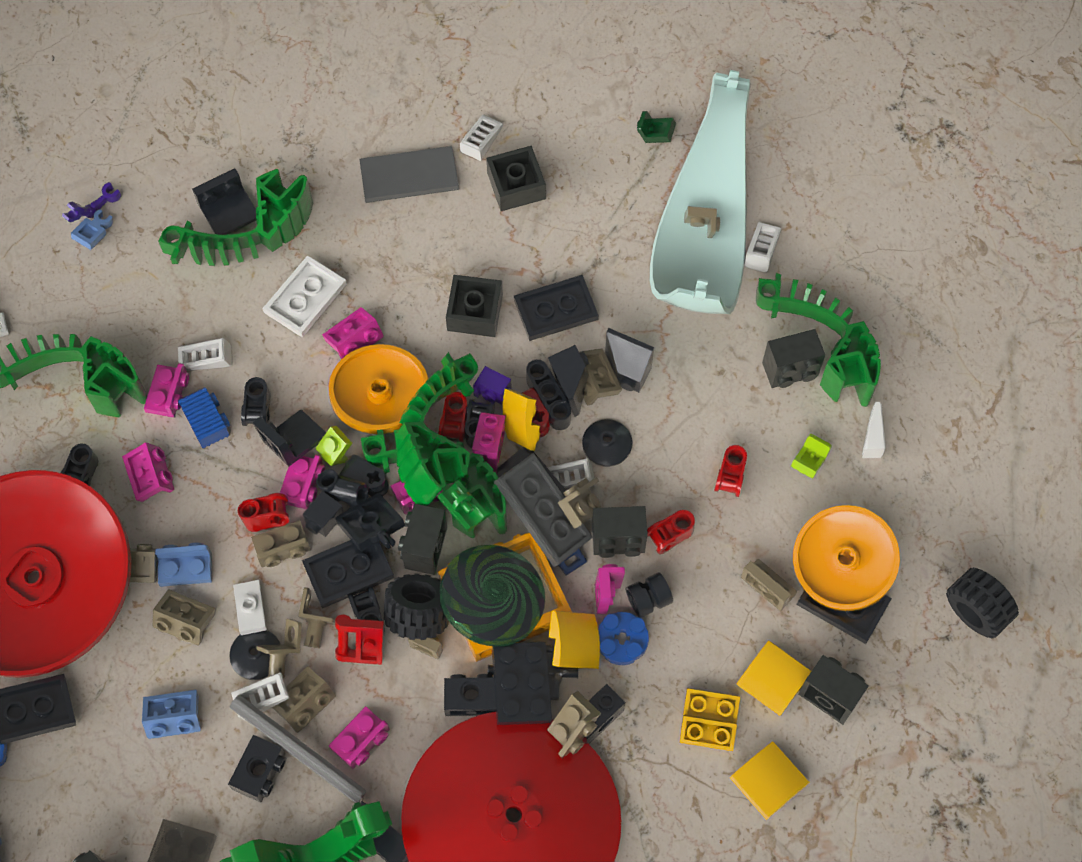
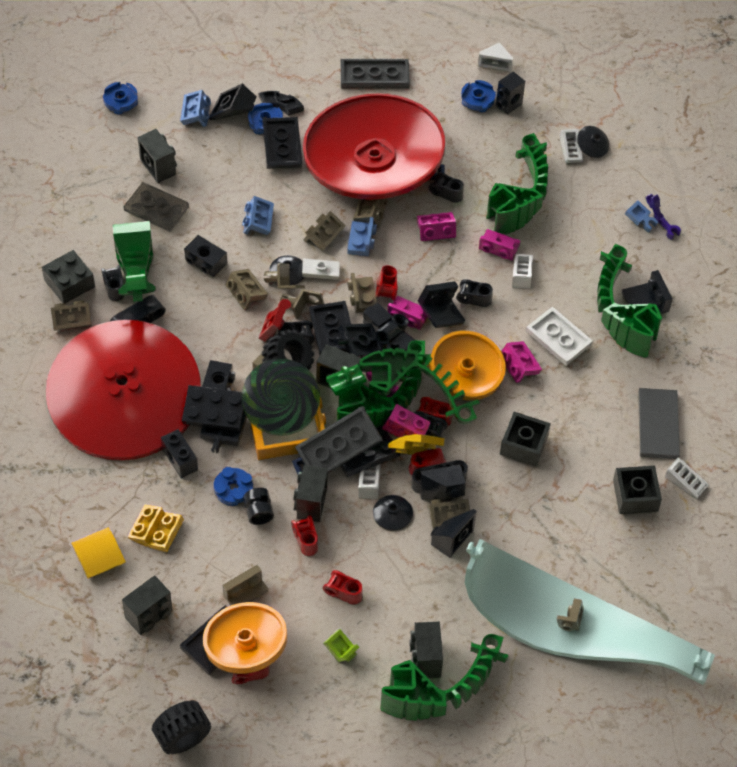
camera: 100 degrees right, 10 degrees down
(204, 417) = (470, 261): blue brick -> none
(251, 690) = (253, 261): white slope -> none
(297, 749) = (210, 276): light grey axle -> none
(334, 446) = (426, 330): lime bracket -> none
(359, 738) = (209, 316): dark pink bracket -> none
(491, 385) = (455, 441): dark purple brick -> none
(556, 307) = (515, 498): black plate -> none
(574, 723) = (169, 427): dark tan bracket -> none
(576, 640) = (236, 447): yellow slope -> none
(580, 502) = (339, 472): dark tan bracket -> none
(607, 580) = (269, 474): dark pink bracket -> none
(655, 129) = (673, 605): dark green bracket -> none
(760, 260) = (534, 666): white slope -> none
(774, 677) = (174, 573): yellow slope -> none
(875, 439) = (350, 700): white slope -> none

